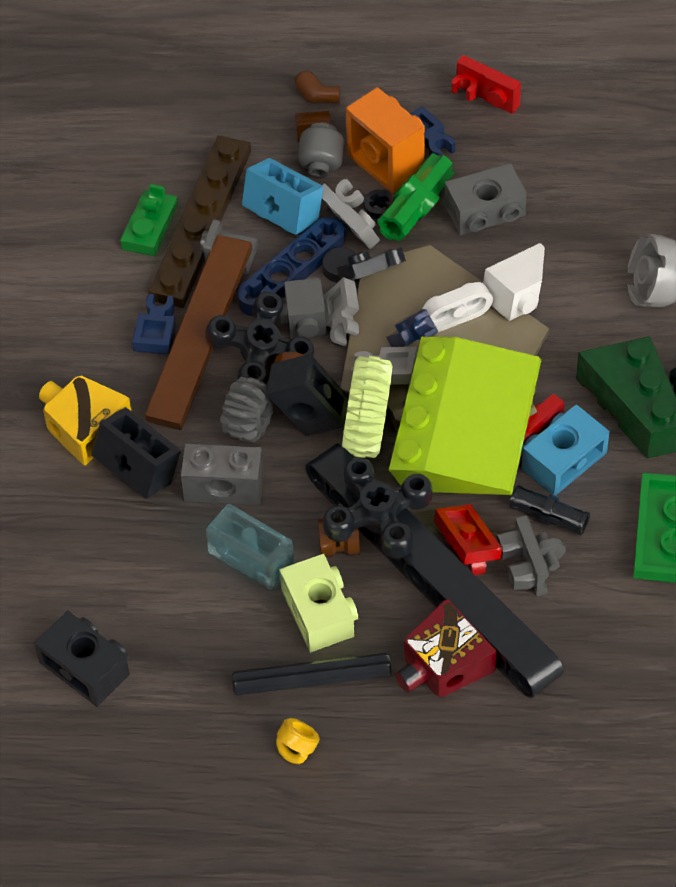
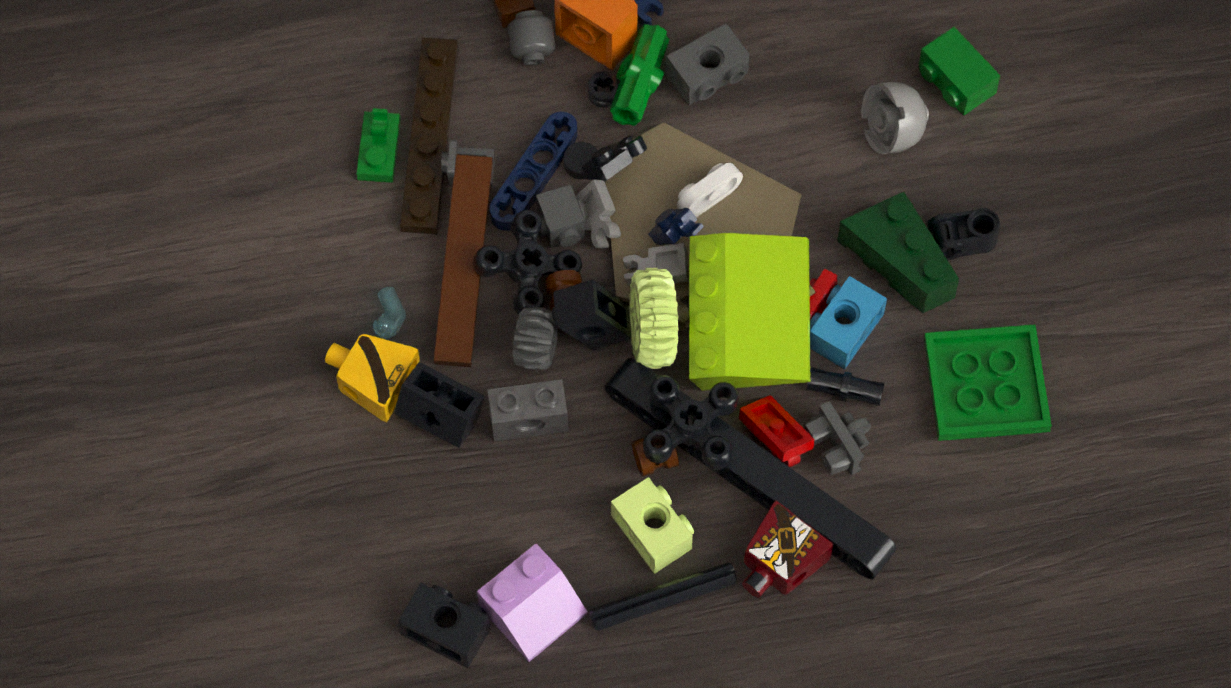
camera: 15 degrees left, 10 degrees up
(119, 368) = (393, 314): none -> clear light blue arm
(156, 329) = (418, 265): dark blue plate -> none
(175, 652) = (531, 602): none -> lavender slope
(249, 546) = (575, 481): clear light blue brick -> none
(282, 196) = (508, 98): dark azure brick -> none
(298, 737) = (668, 663): yellow tile -> none
(359, 223) = (590, 113): light grey plate -> none
(516, 282) = (762, 153): white slope -> none

